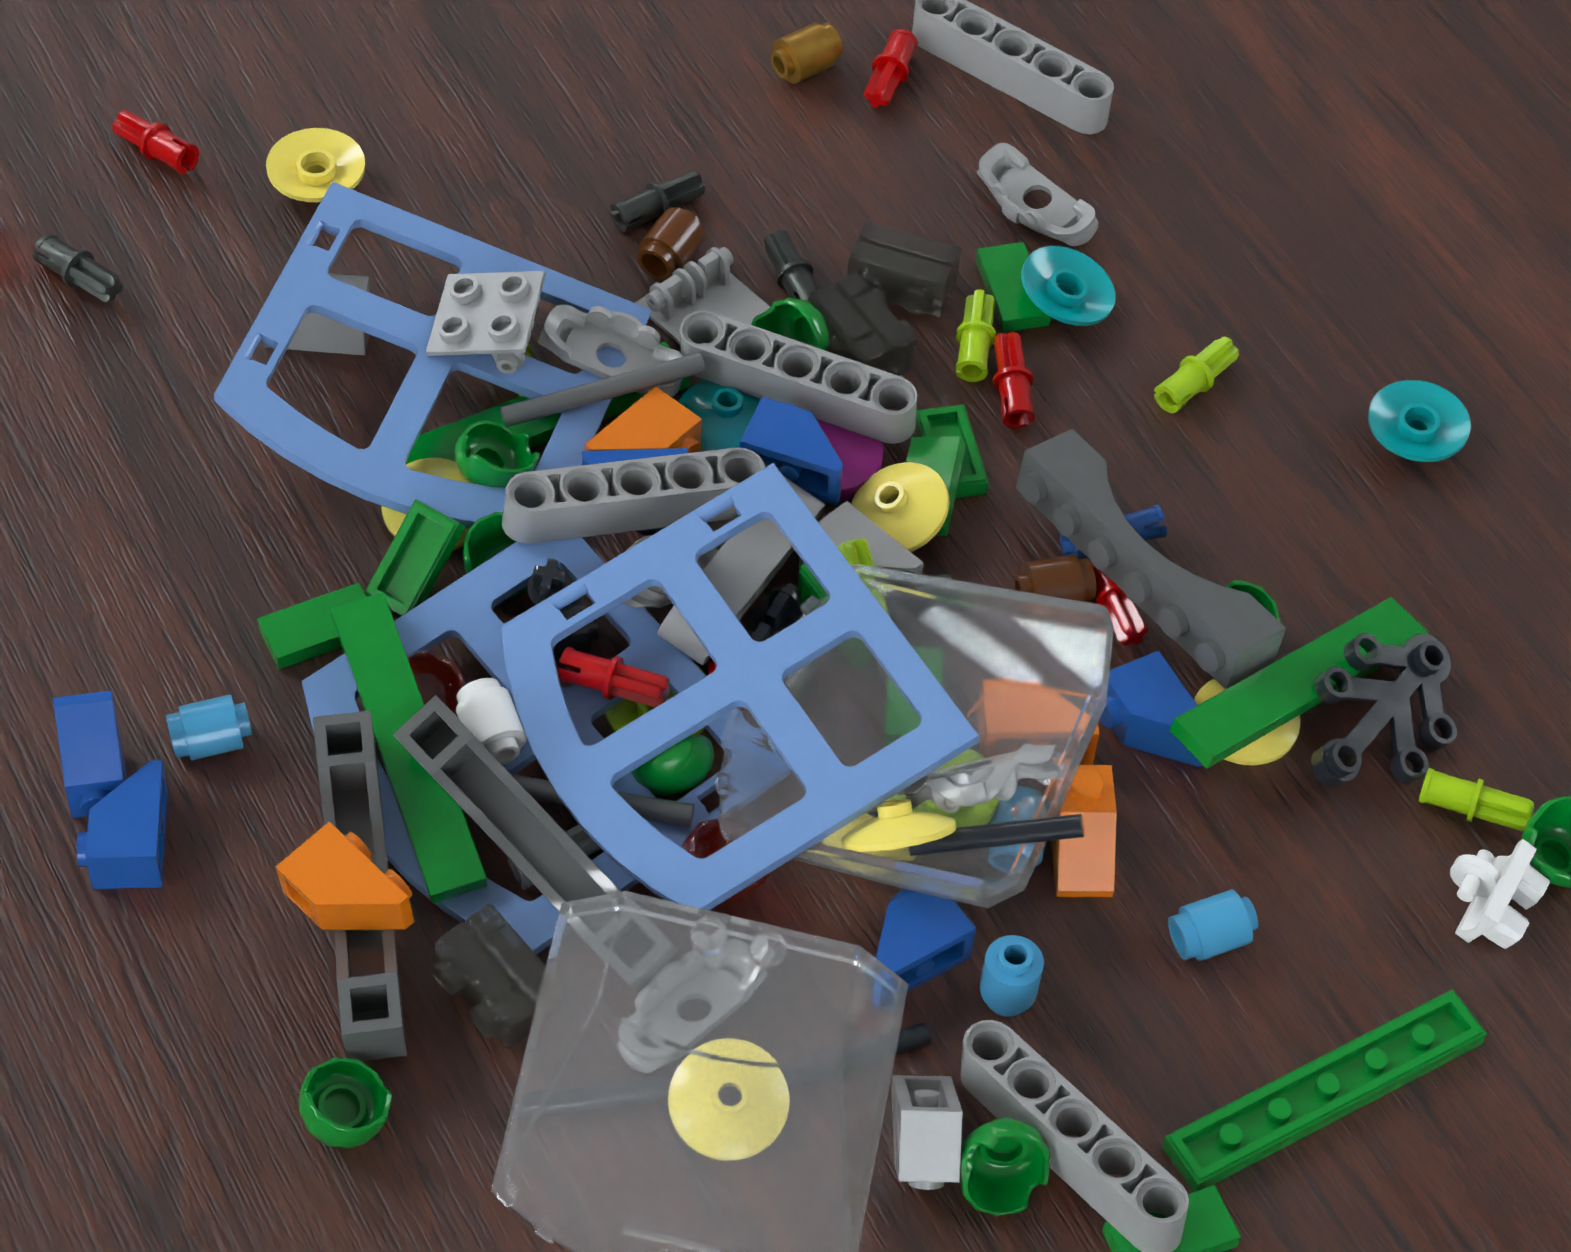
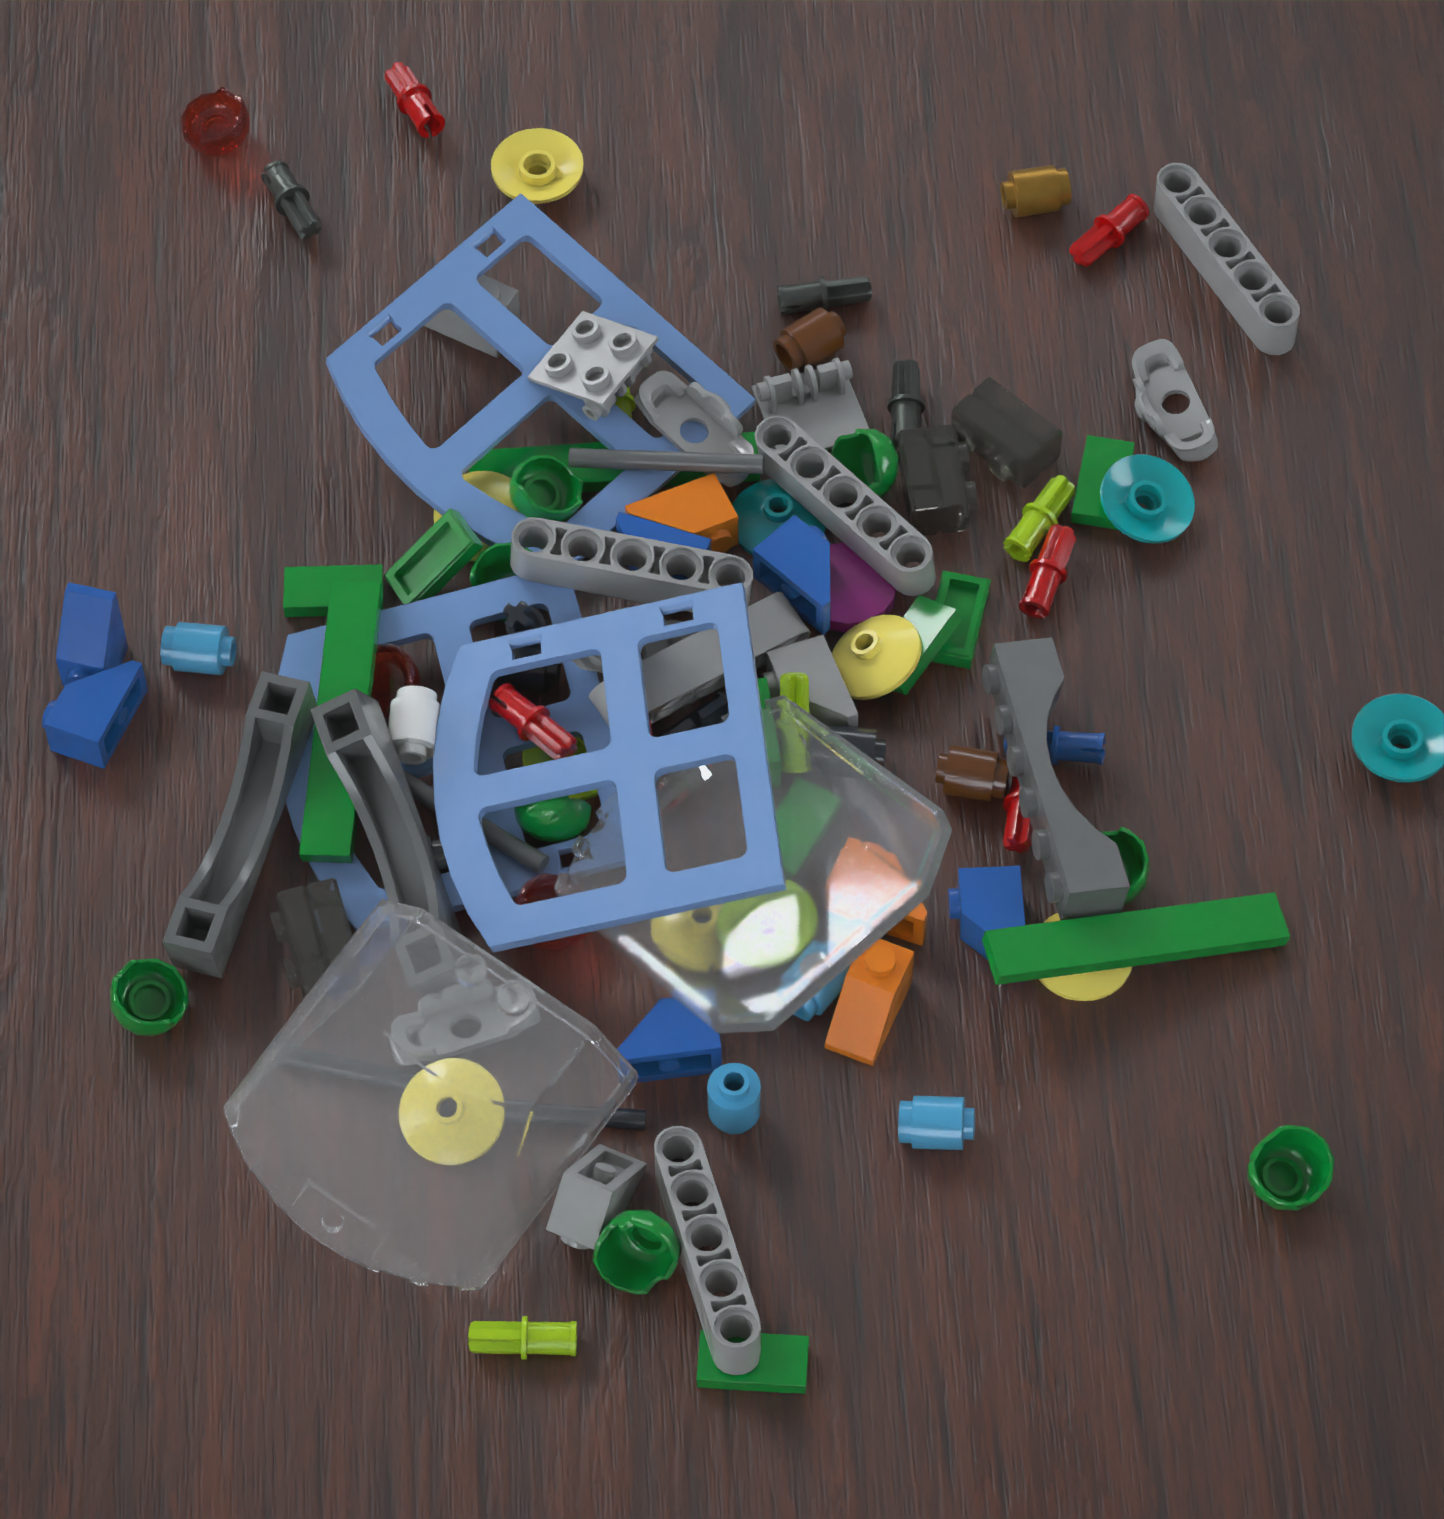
camera: 30 degrees right, 5 degrees up
(342, 887) = (219, 820): orange slope -> none
(897, 828) = (689, 939): light yellow dish -> none
(983, 779) = (780, 922): light grey piece -> none
(1005, 834) = (767, 974): black bar -> none
(1195, 374) = (1222, 622): lime axle -> none
(1323, 1091) = (956, 1296): green tile -> none
(1389, 705) = (1209, 985): black plant -> none
(1476, 800) = (1235, 1099): lime axle -> none
(1490, 886) = (1227, 1181): white hips -> none

